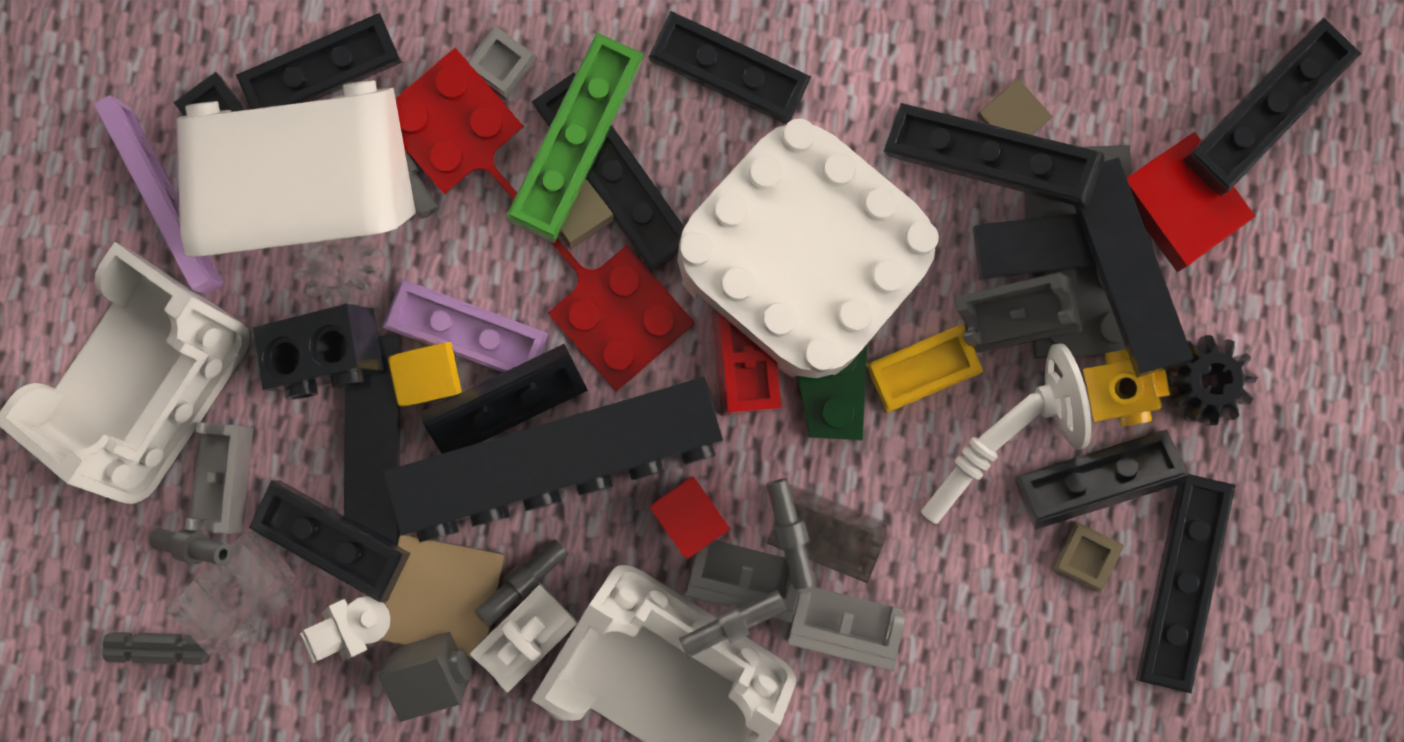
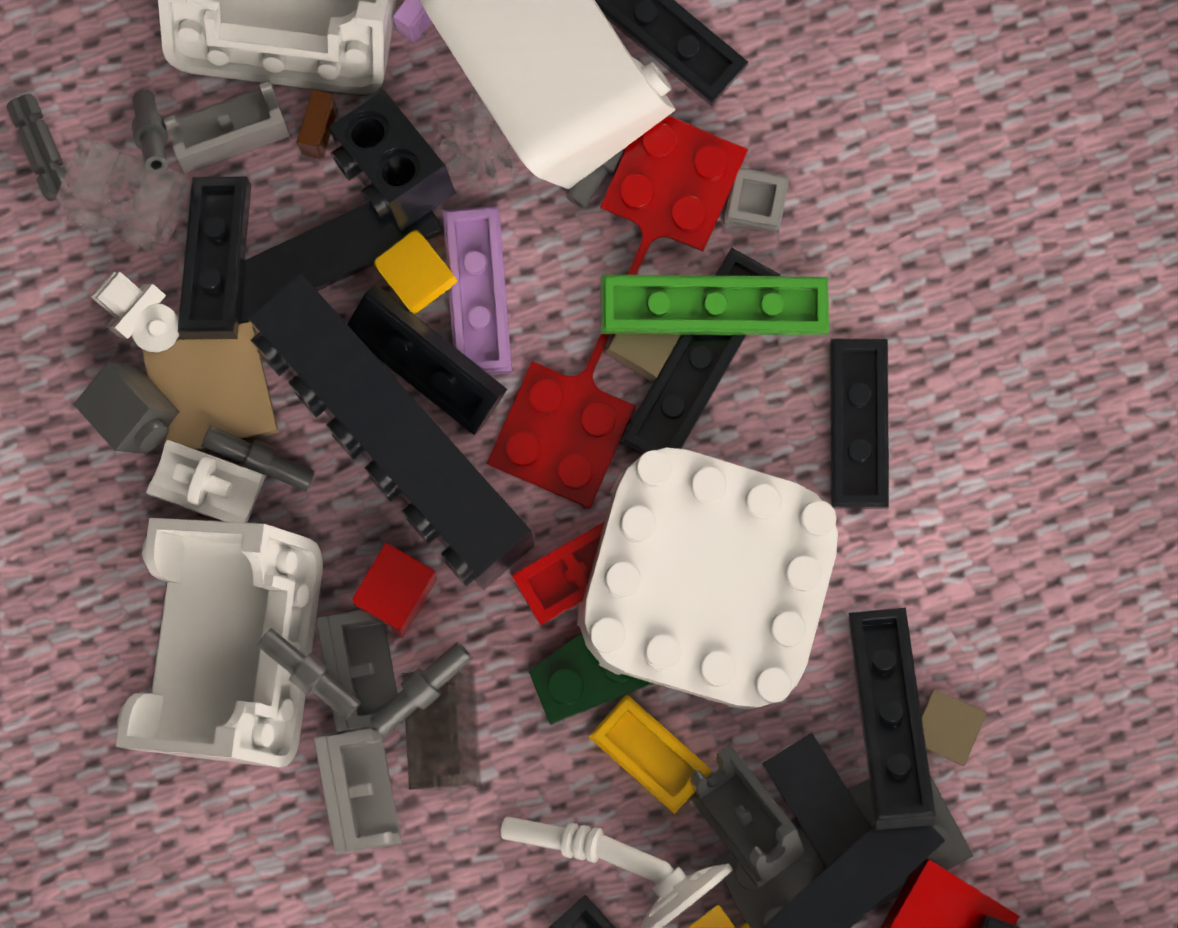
camera: 70 degrees right, 5 degrees down
(255, 399) = (314, 129): none -> reddish brown tile

